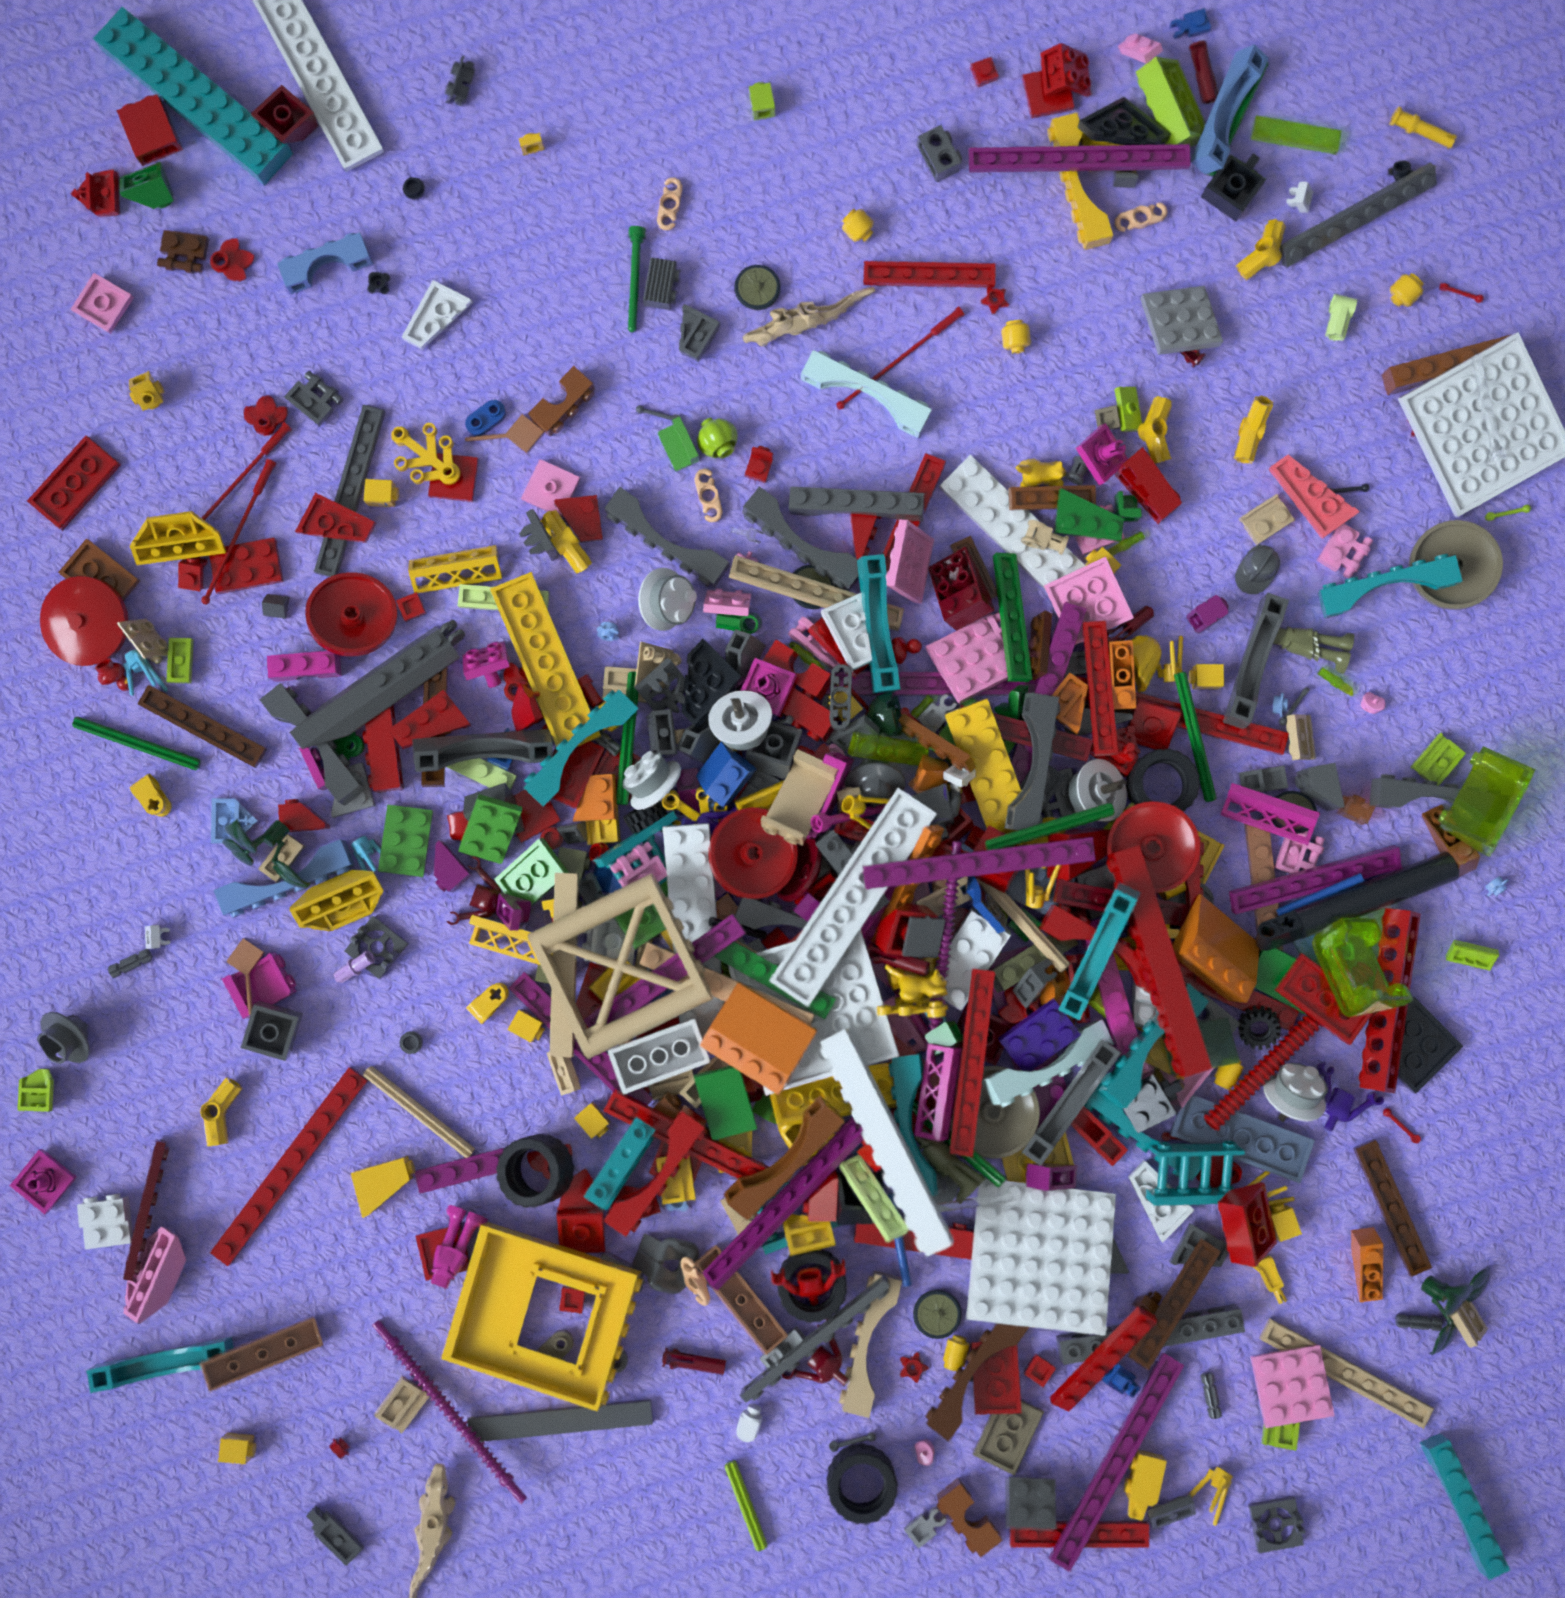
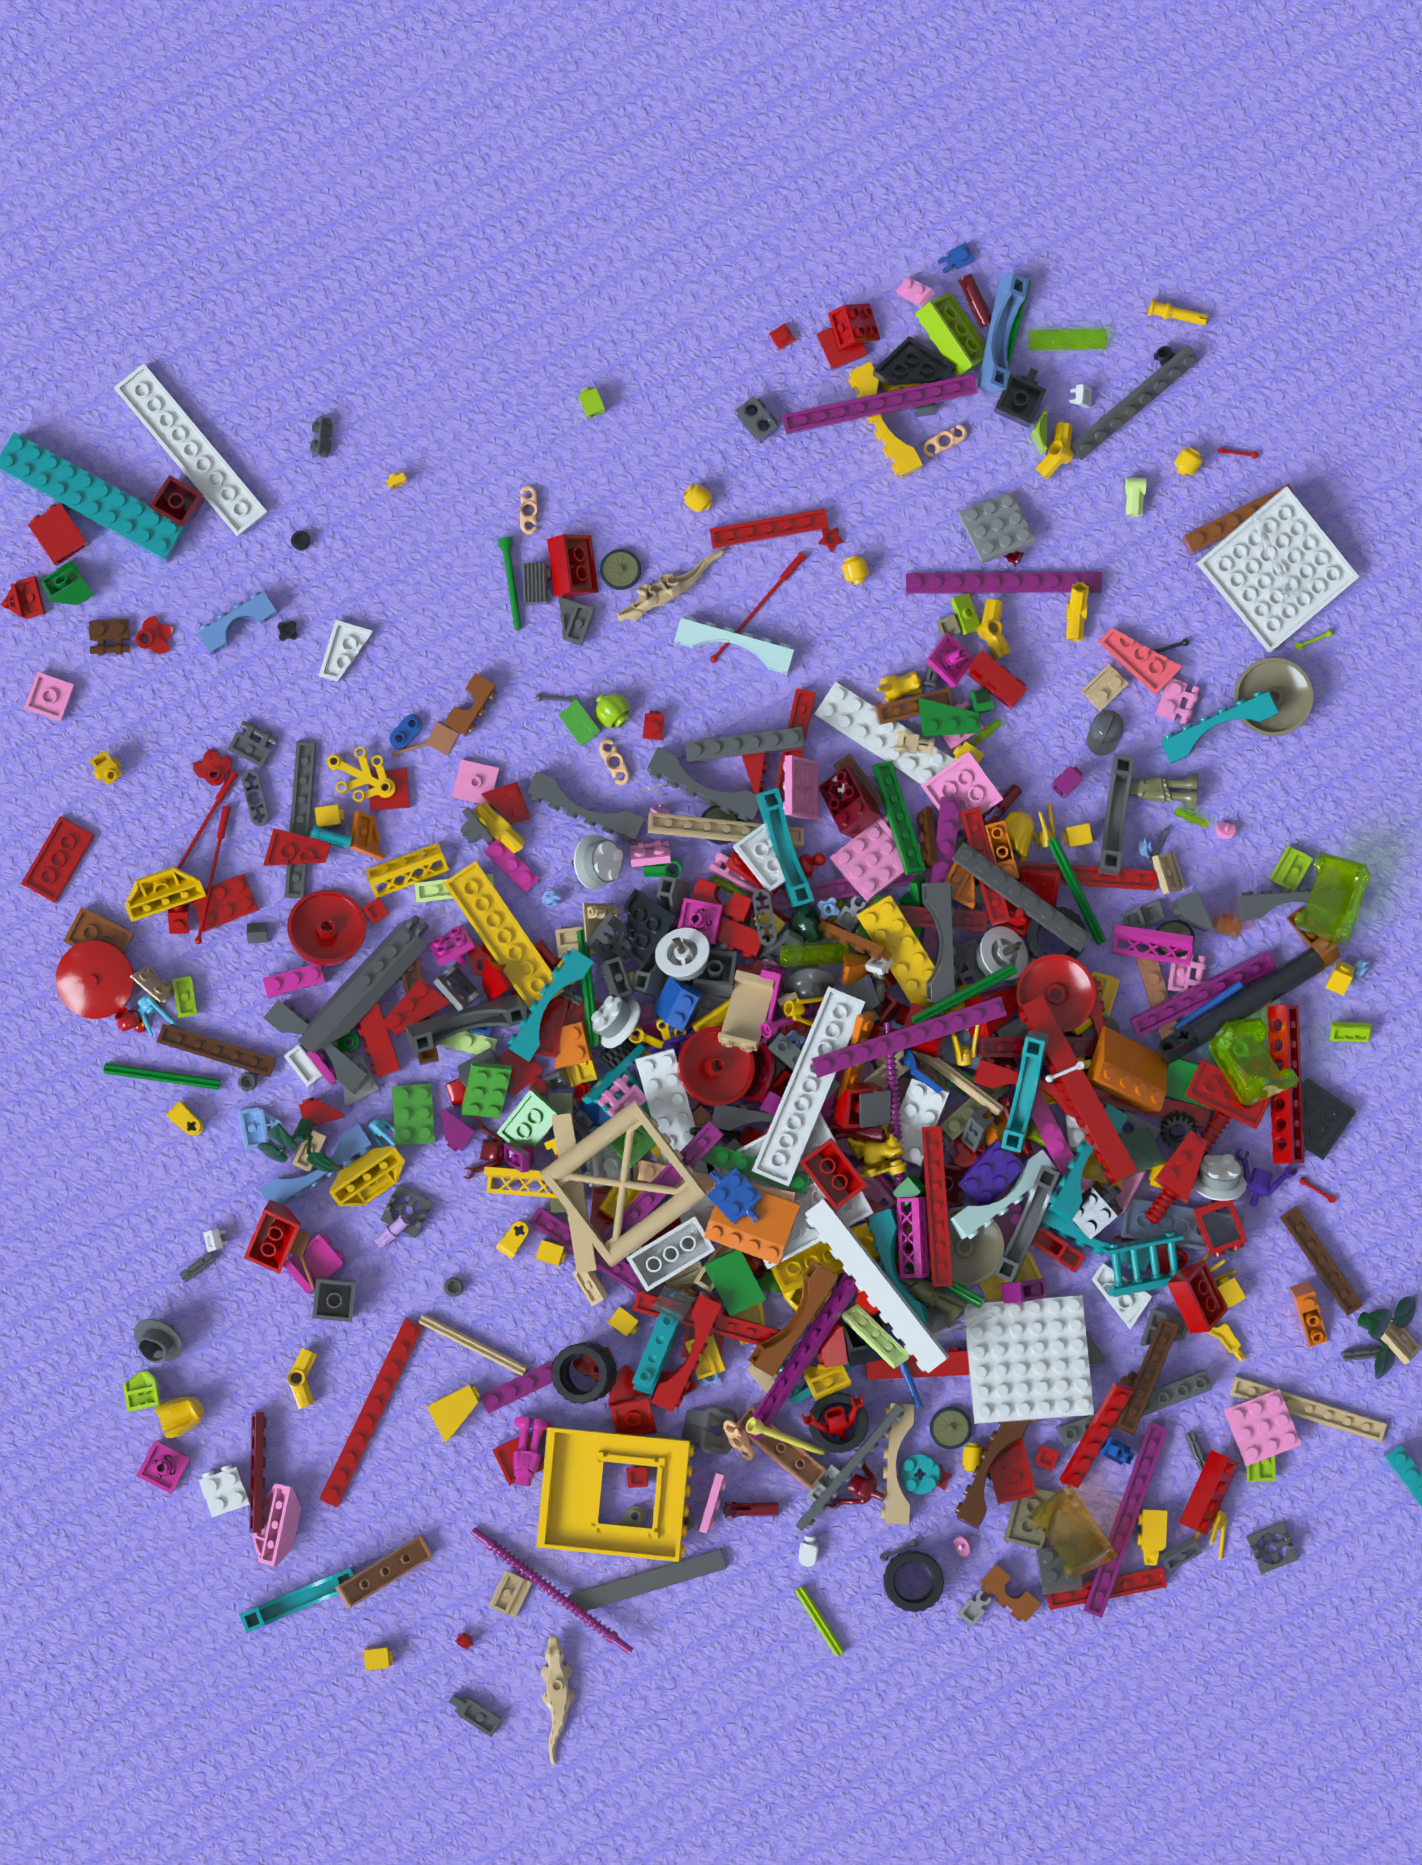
camera: 10 degrees left, 0 degrees up
(71, 1127) = (179, 1415): none -> yellow hair
(215, 946) = (273, 1237): none -> red slope
(225, 772) = (242, 1081): none -> dark grey plate
(294, 762) = (303, 1065): none -> white tile
(310, 442) = (257, 782): none -> dark grey beam
(375, 514) = (335, 839): none -> teal plate
(416, 522) = (365, 835): none -> orange wing
(481, 723) = (459, 1000): none -> dark grey piece
(572, 587) = (511, 865): none -> dark pink plate
(650, 1113) = (673, 1303): none -> clear light blue piece
(650, 1350) = (713, 1502): none -> bright pink plate
(705, 271) = (572, 565): none -> red slope
(715, 1275) = (755, 1426): none -> light yellow piece
(744, 1006) = (734, 1196): none -> blue plate
(847, 836) = (793, 1035): none -> light blue plate
(862, 1003) = (833, 1174): none -> red slope
(882, 1368) = (912, 1466): none -> teal plate
(908, 697) = (831, 902): none -> light blue plate
(1056, 1469) = (1073, 1533): none -> clear yellow windscreen
(1135, 730) = (1021, 897): none -> dark grey plate
(1168, 934) = (1080, 1065): none -> white hinge
(1171, 382) = (1000, 582): none -> magenta plate
(1218, 1449) = (1209, 1492): none -> red brick
(1247, 228) = (1039, 433): none -> lime slope
(1260, 1072) = (1182, 1167): none -> red wedge
(1264, 1129) = (1220, 1250): none -> red window
(1473, 892) = (1340, 977): none -> yellow brick

